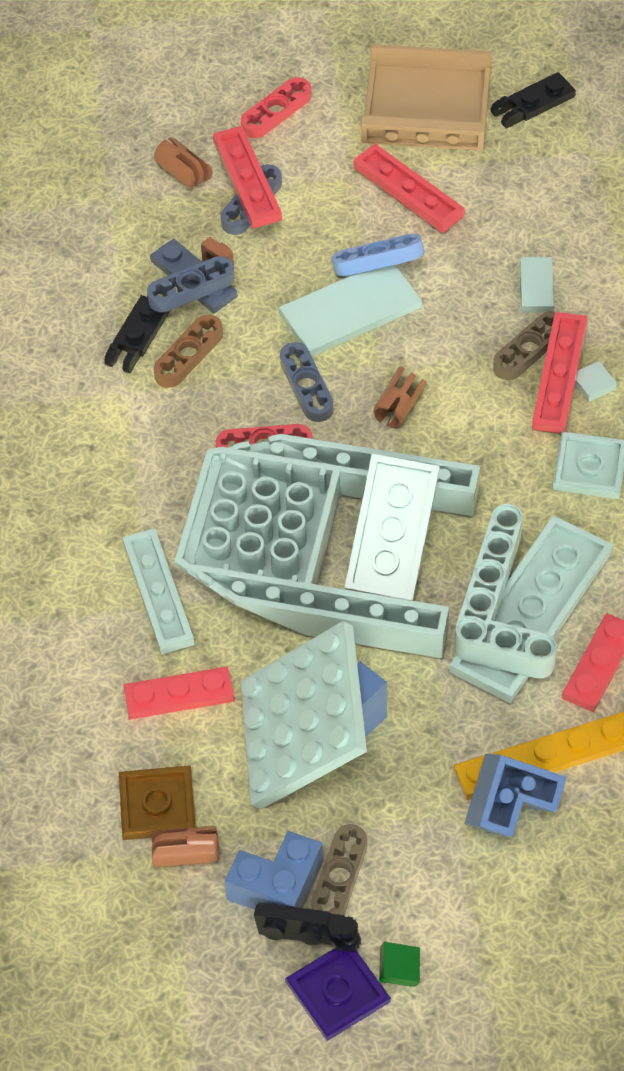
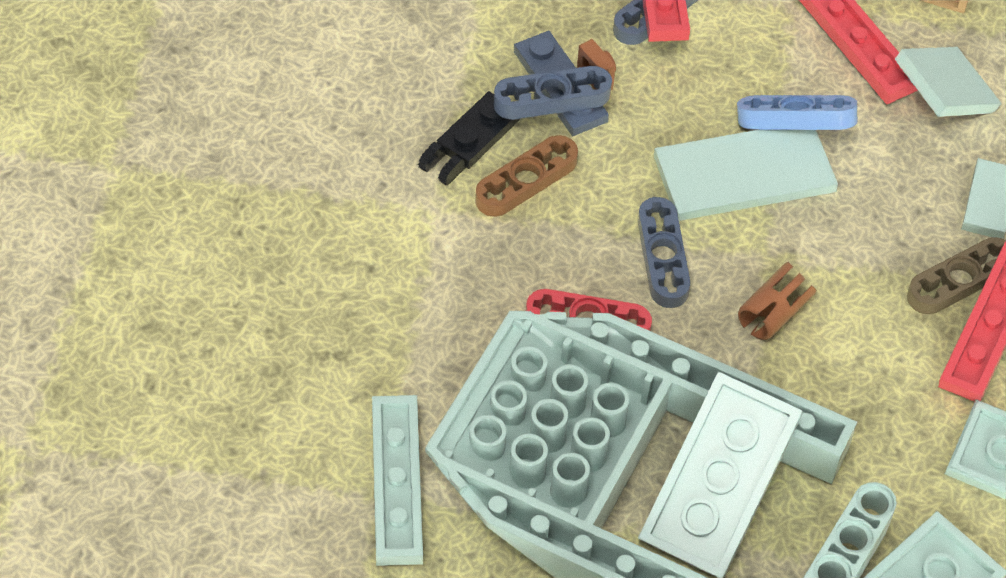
camera: 10 degrees right, 0 degrees up
(483, 204) = (947, 81): none -> light aqua tile

